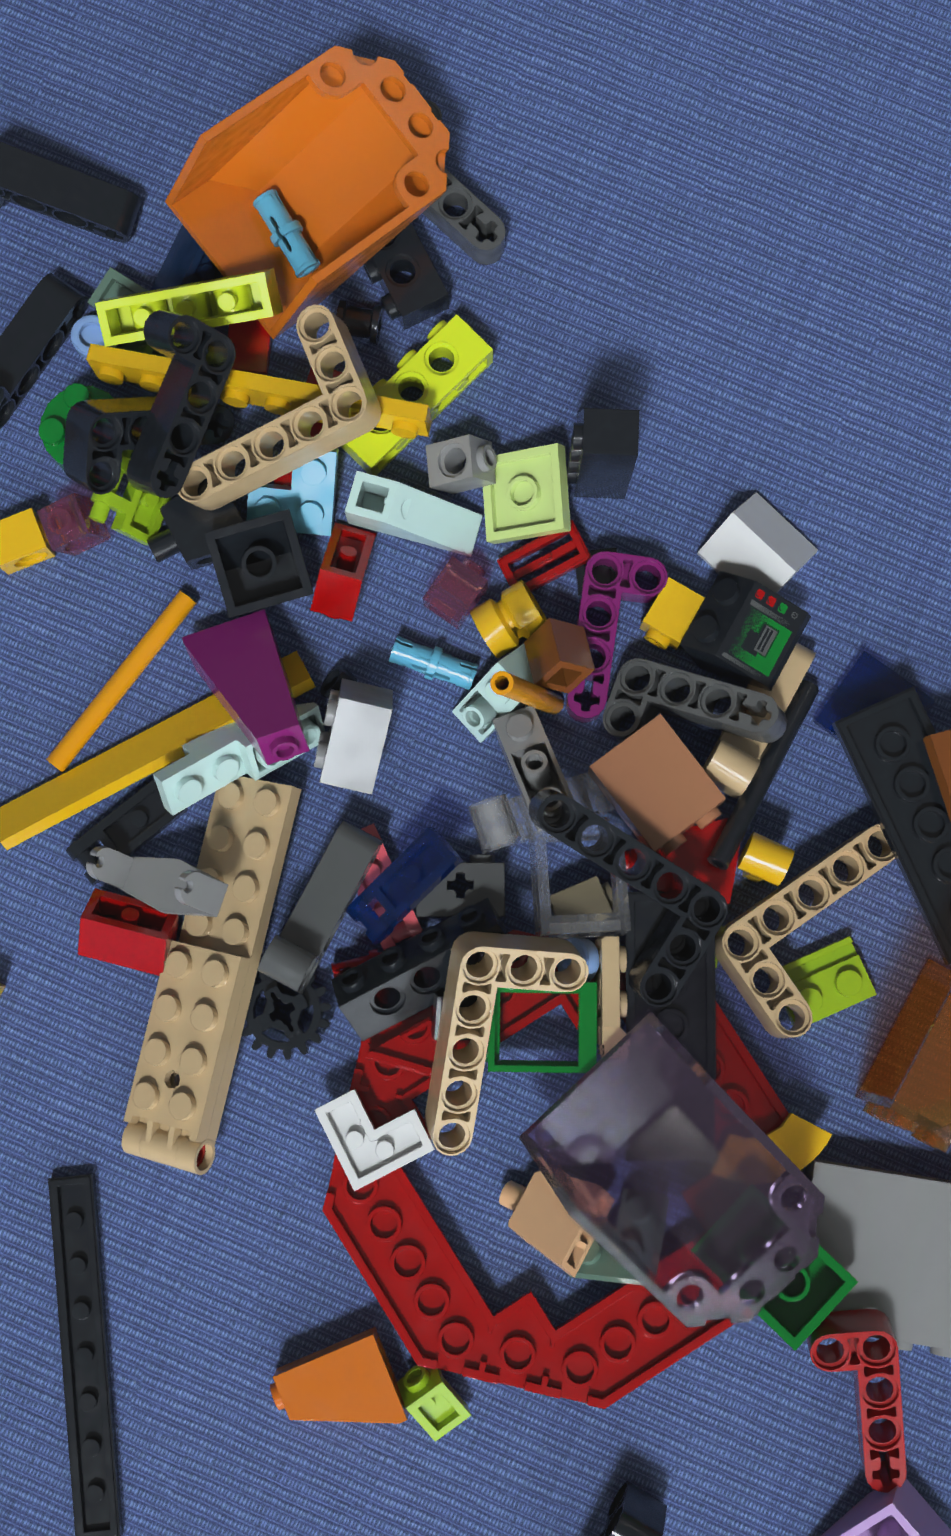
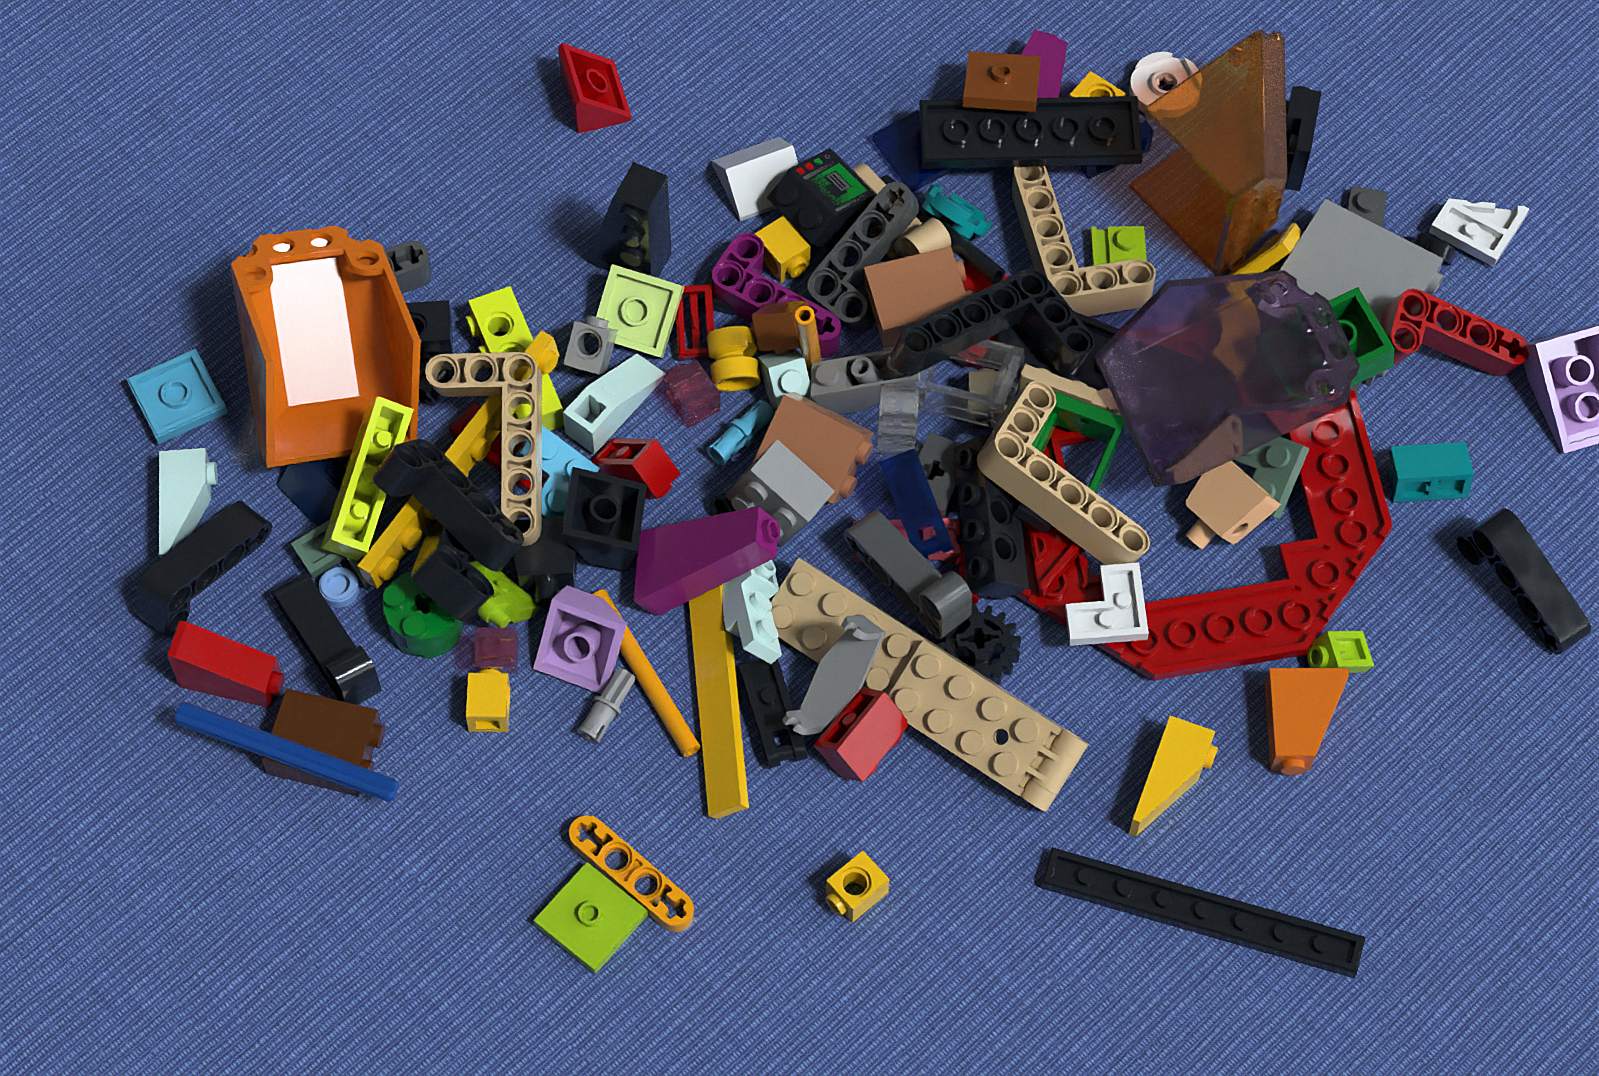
camera: 70 degrees left, 20 degrees down
(65, 660) = (606, 706): none -> light grey axle
(116, 138) = (183, 494): none -> light aqua slope
(125, 600) = (580, 640): none -> lavender slope
(228, 1271) = (1175, 769): none -> yellow slope
(231, 71) = (177, 396): none -> medium azure plate
(286, 233) = (311, 395): medium azure pin -> none
(434, 749) = (822, 441): none -> nougat brick
(698, 1424) = (1430, 472): none -> teal hinge
(765, 859) = (1009, 246): yellow piece -> none
(785, 326) = (592, 89): none -> red slope
(795, 783) = (967, 218): none -> teal plate
(887, 1151) = (1271, 251): none -> yellow tile

